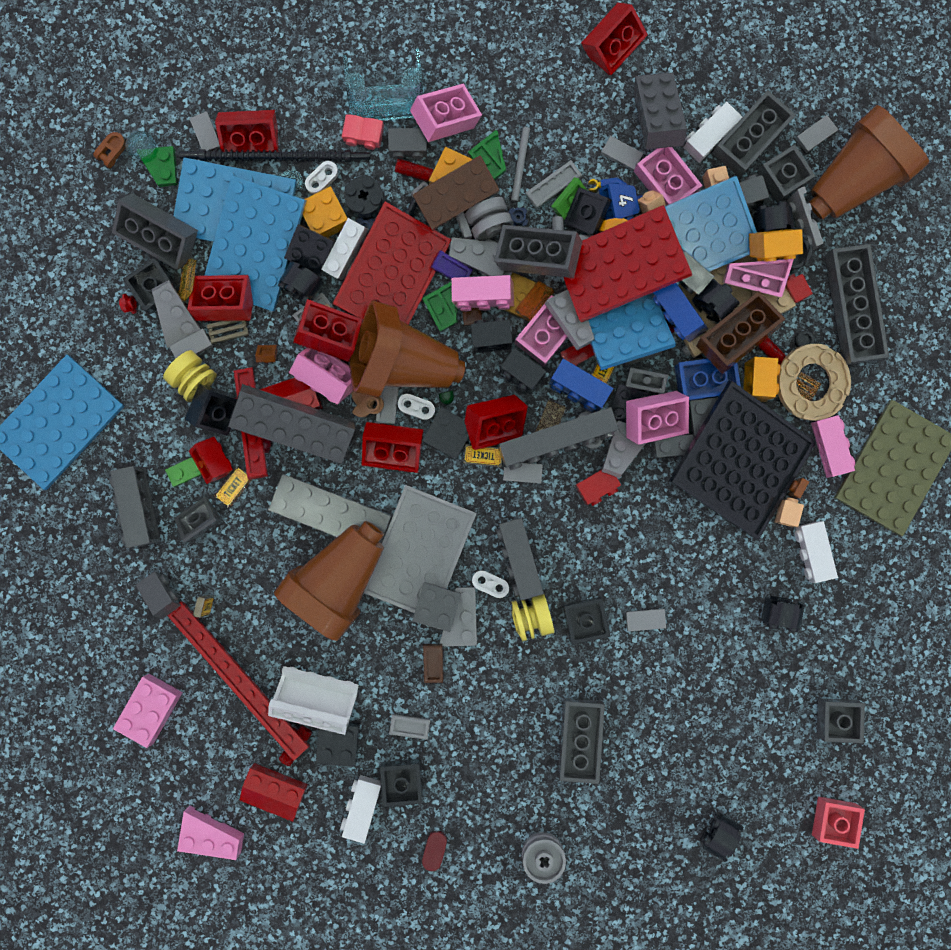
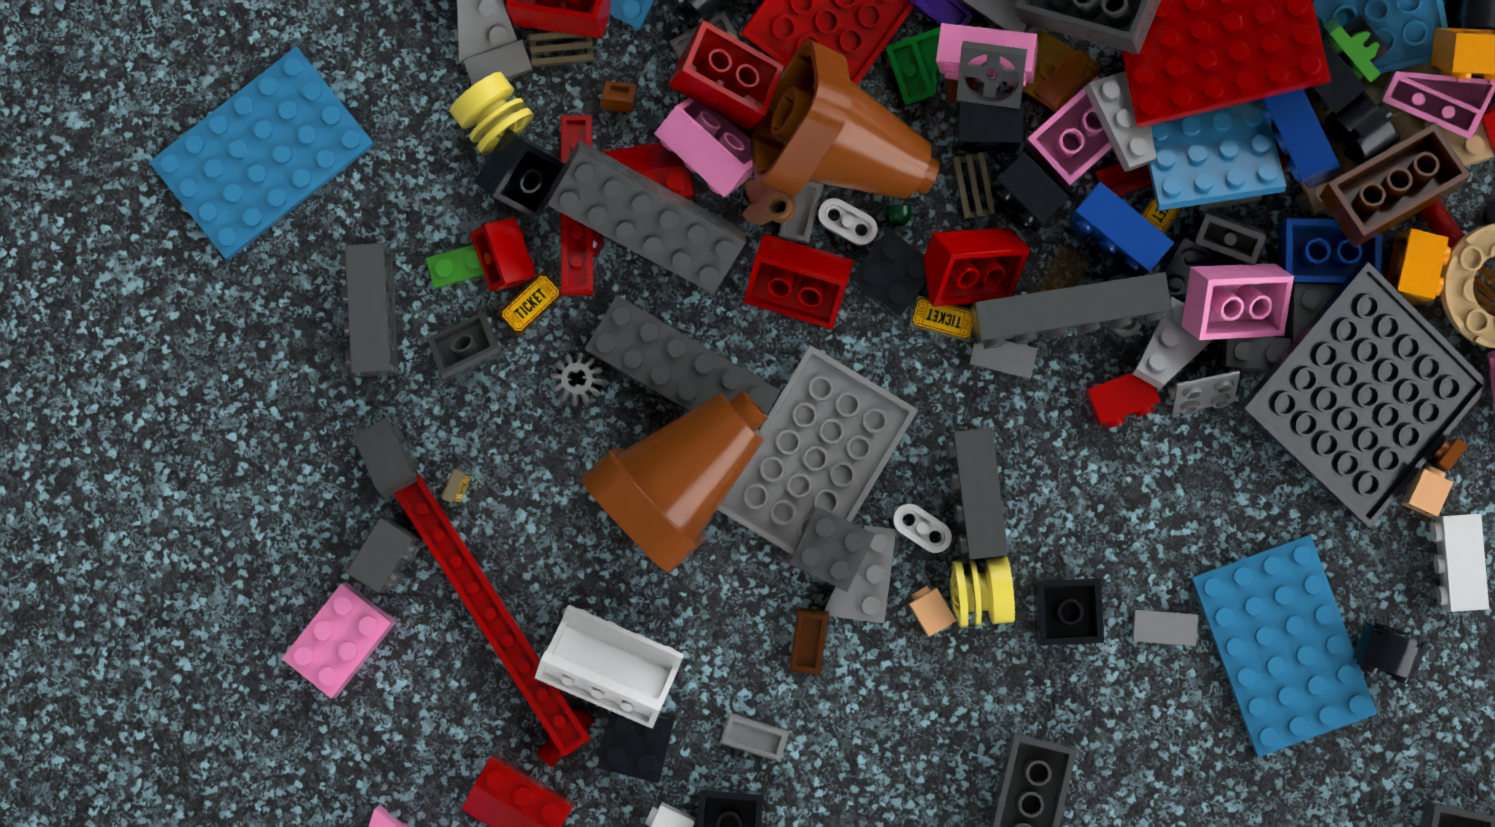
camera: 20 degrees right, 0 degrees up
(166, 655) = (384, 556): none -> dark grey brick
(267, 520) = (577, 368): none -> light grey gear
(494, 388) = (969, 159): none -> dark tan tile
(499, 290) = (989, 96): none -> dark grey piece
(503, 633) = (931, 610): none -> light nougat brick
(651, 473) = (1204, 393): none -> light grey hinge
(705, 250) = (1359, 43): none -> bright green piece
(718, 619) = (1283, 645): none -> dark azure plate

